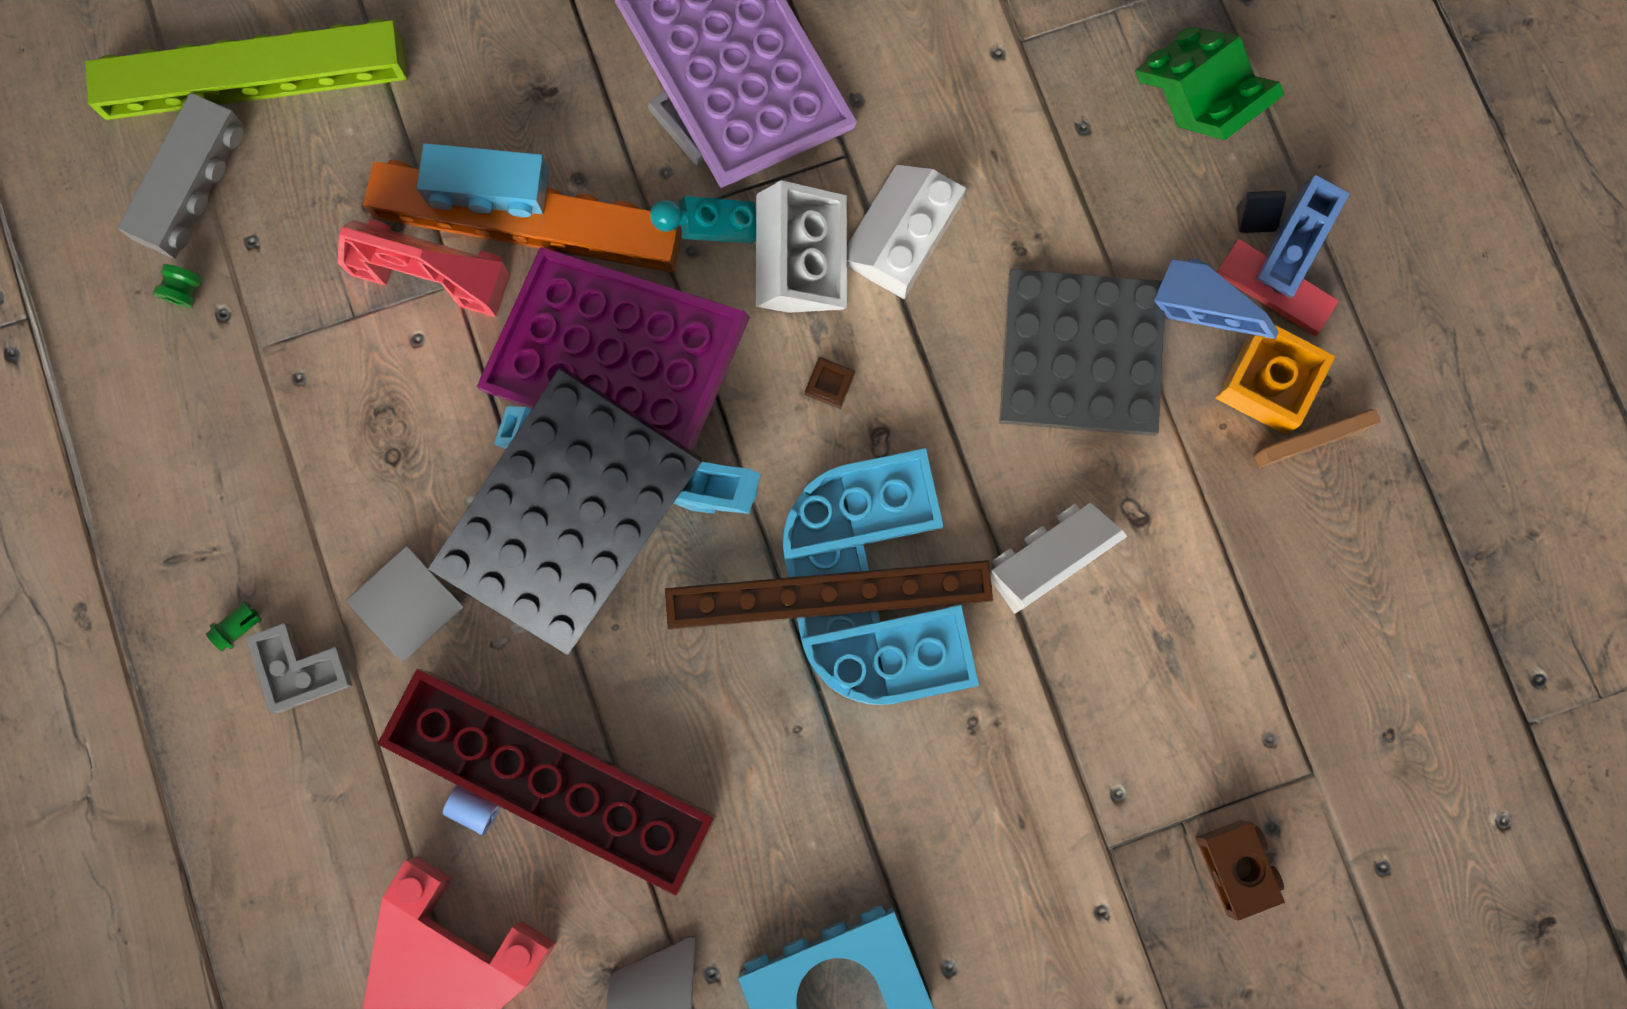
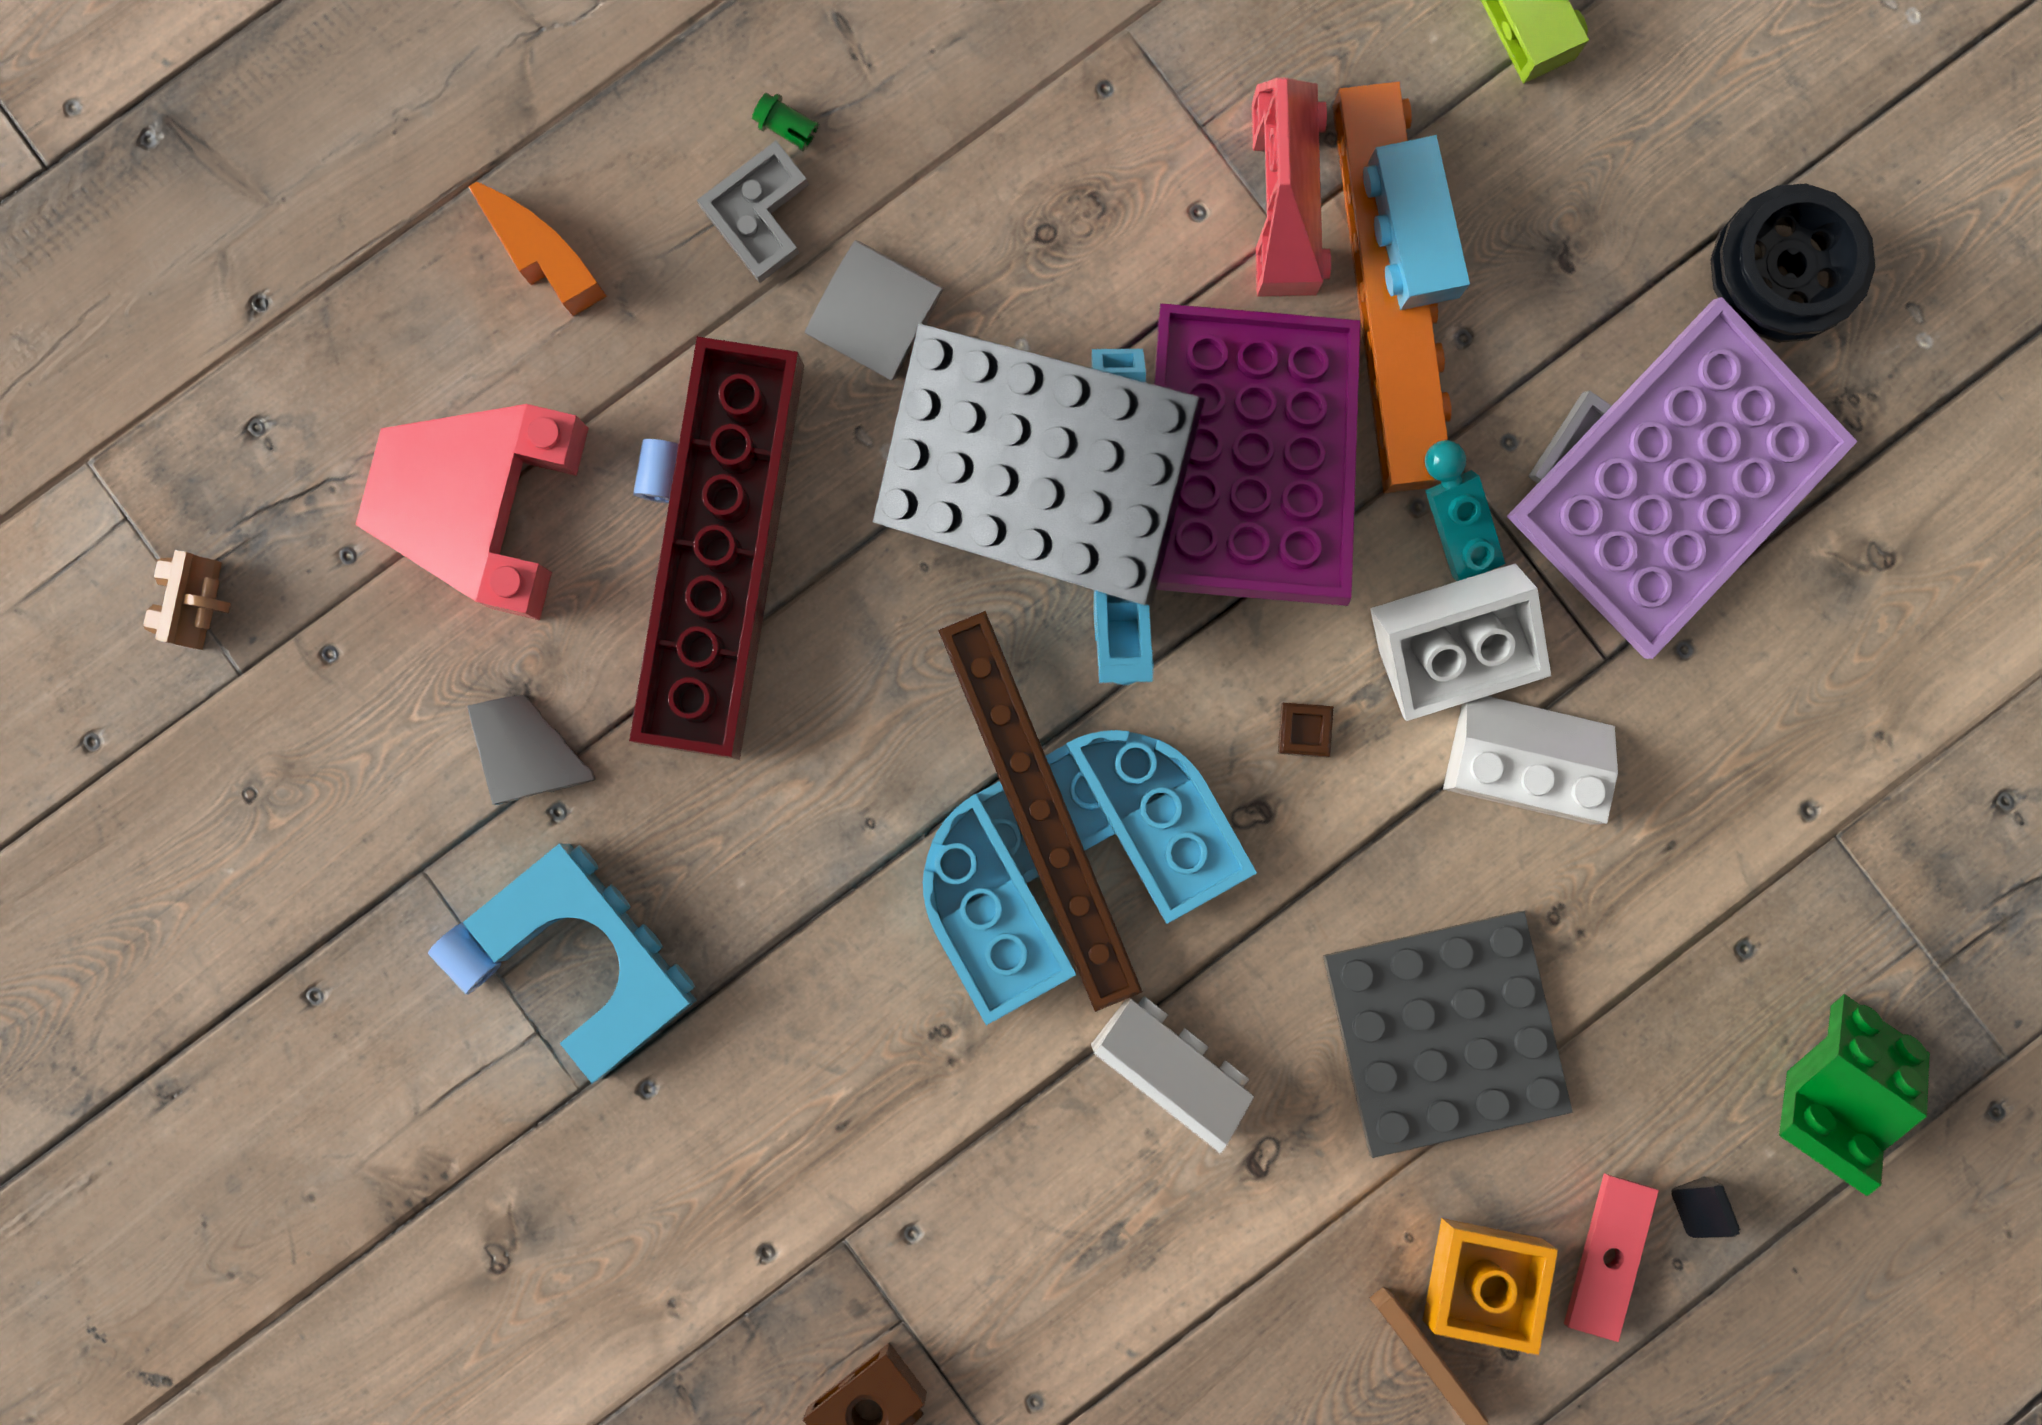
camera: 75 degrees right, 5 degrees up
(262, 851) = (539, 250): none -> orange slope
(1203, 297) = (1564, 1161): medium blue slope -> none
(1301, 235) = (1687, 1270): medium blue slope -> none

